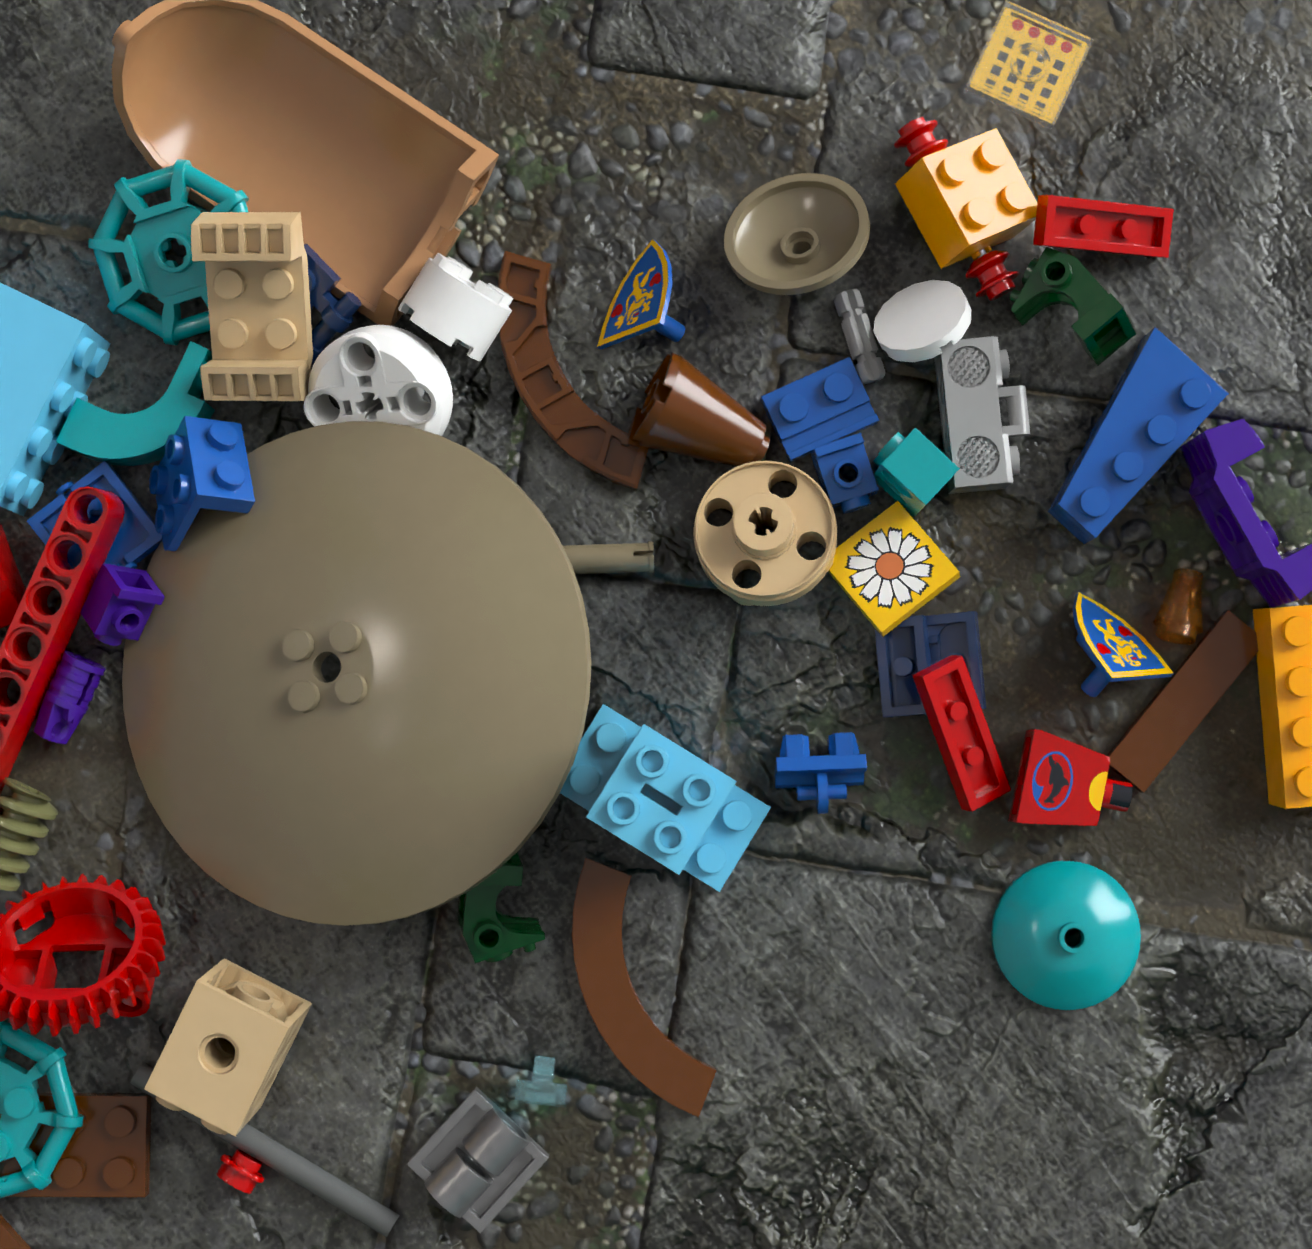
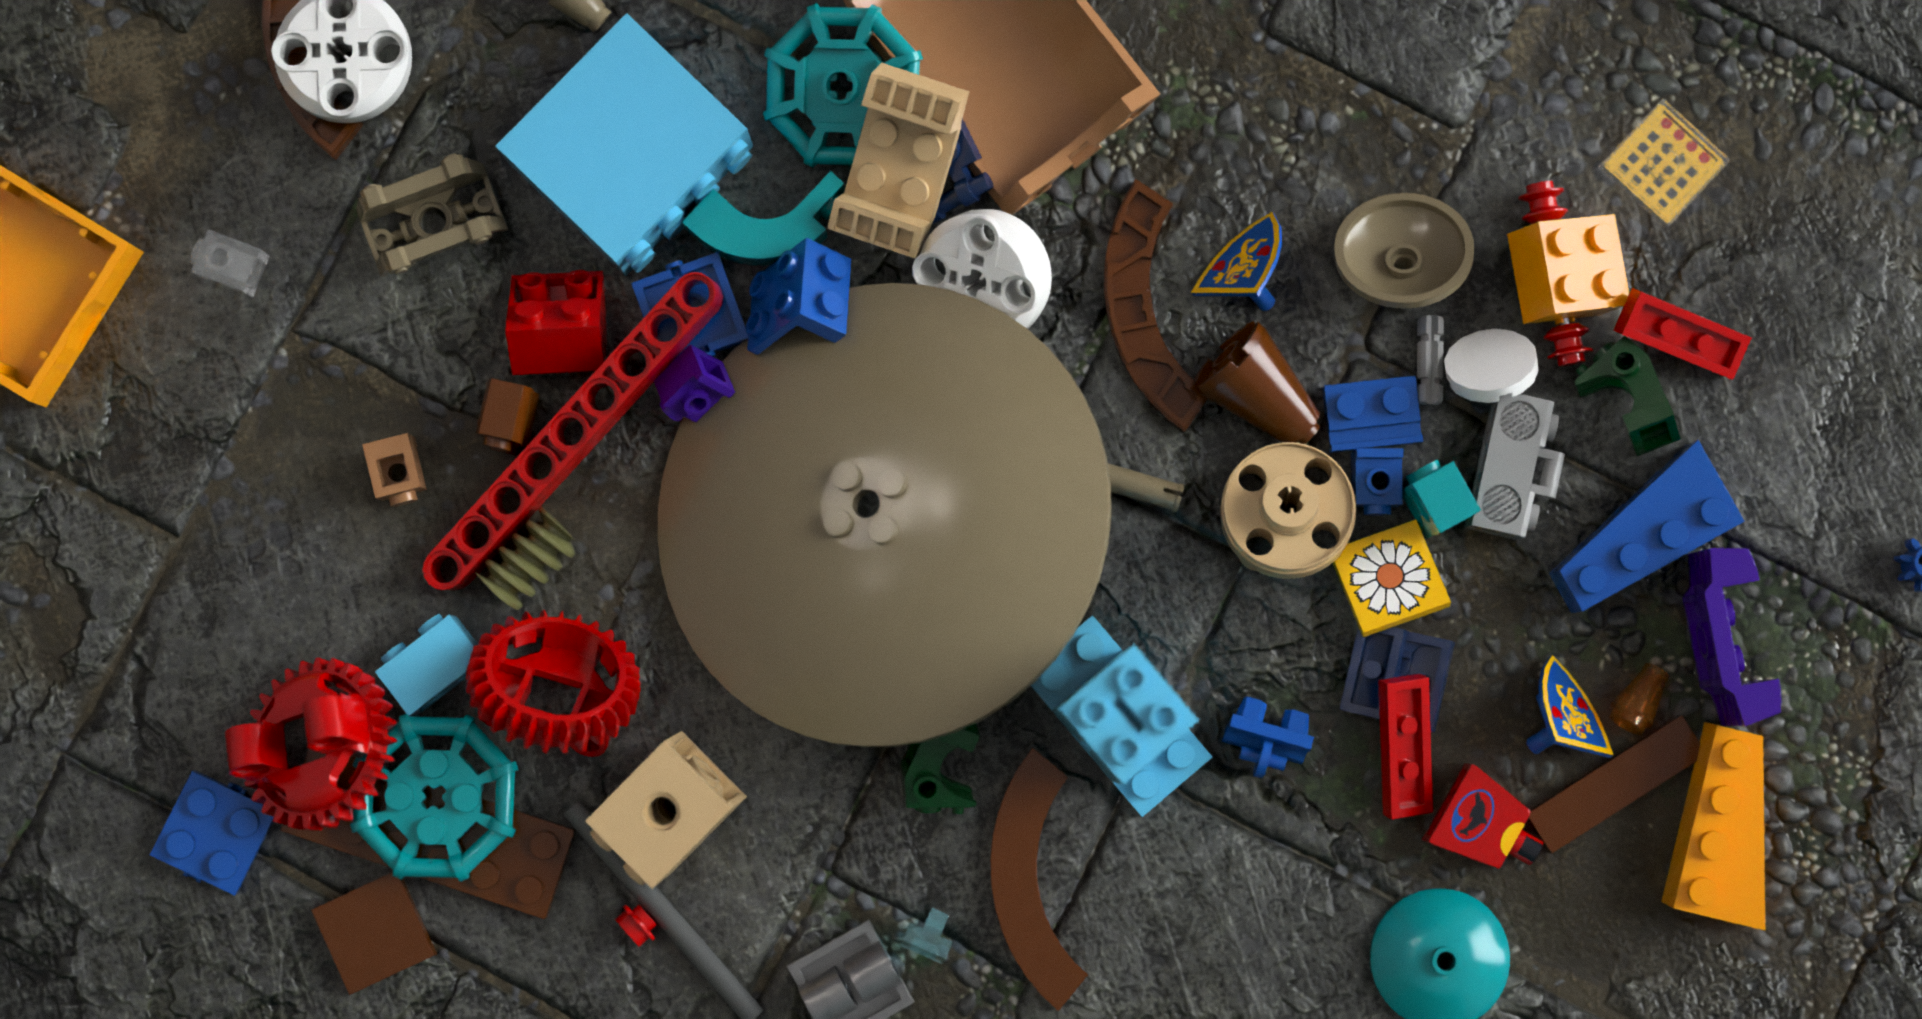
camera: 15 degrees right, 0 degrees up
(68, 697) = (617, 452): dark purple hinge -> none
(456, 308) = (1077, 217): white brick -> none

